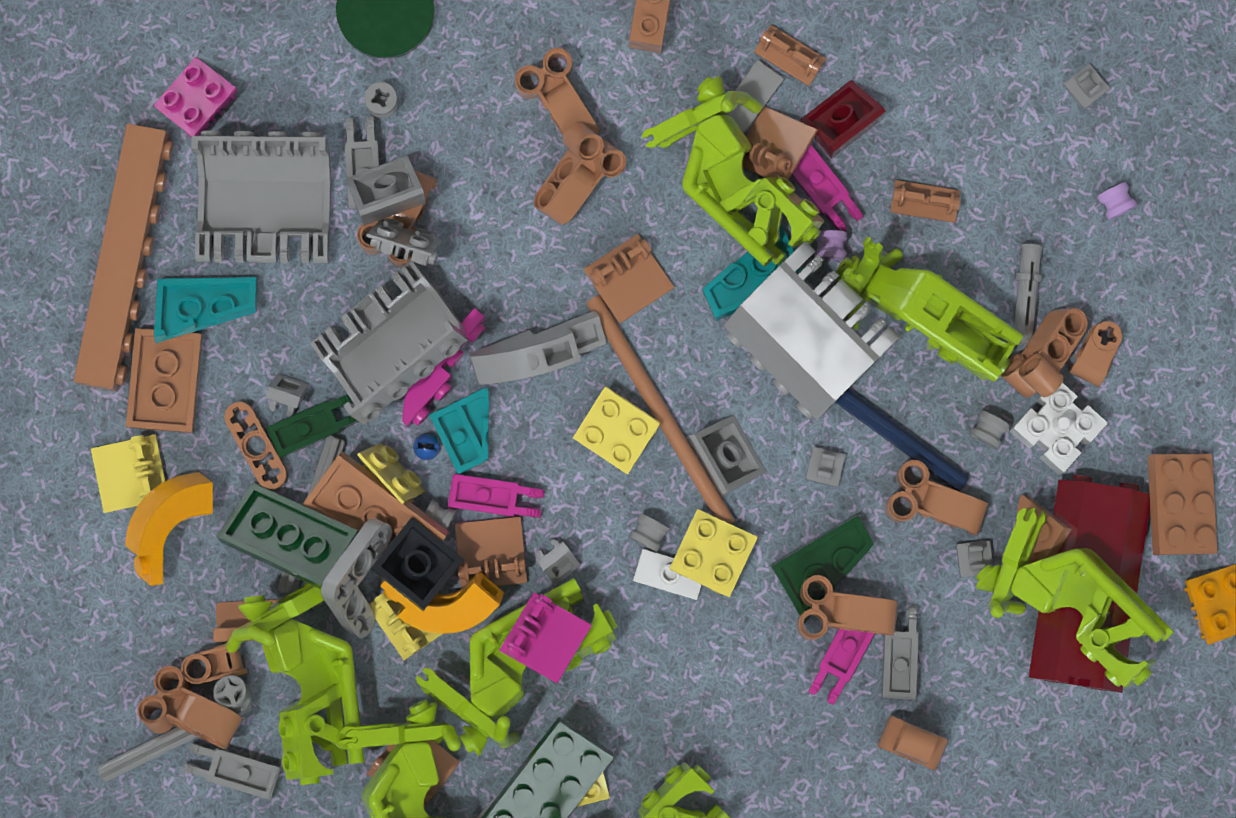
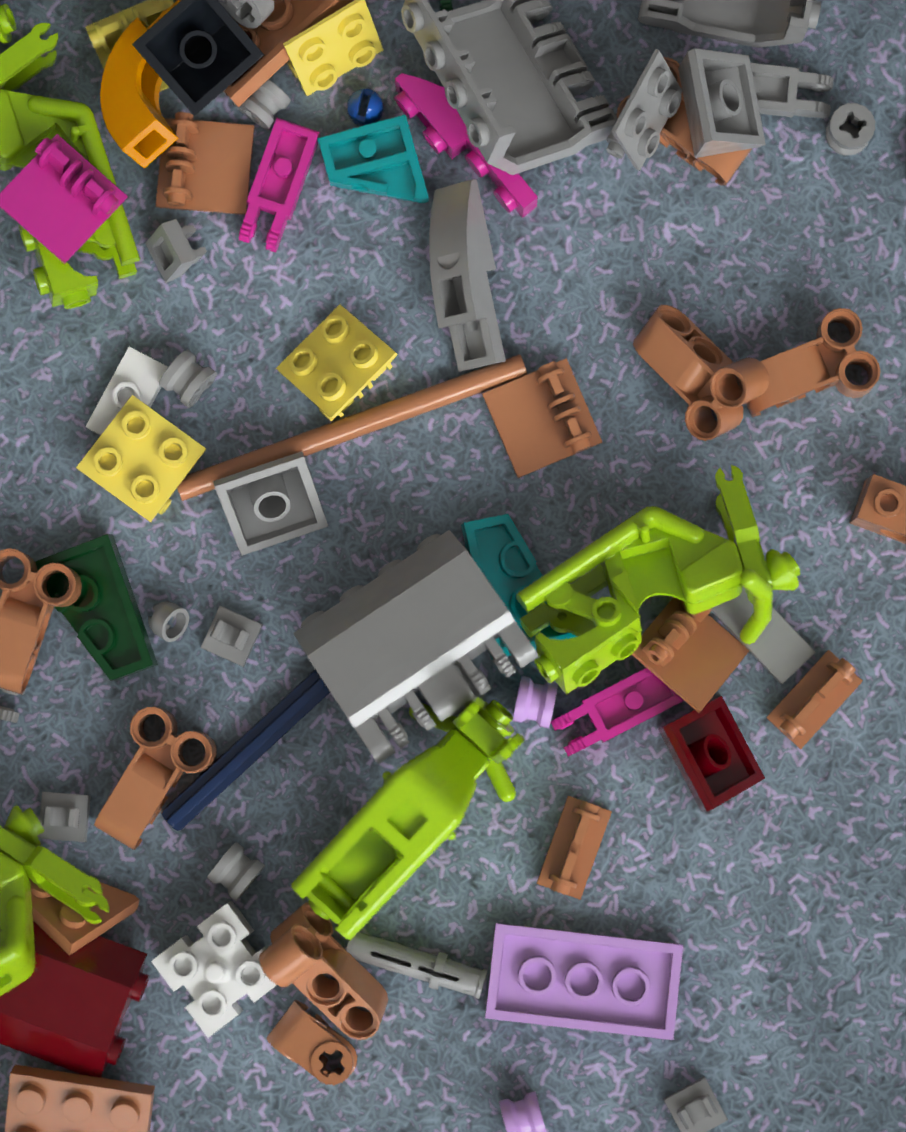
camera: 100 degrees right, 0 degrees up
(818, 515) = (161, 616): none -> light grey hinge
(1015, 177) = (584, 981): none -> lavender plate

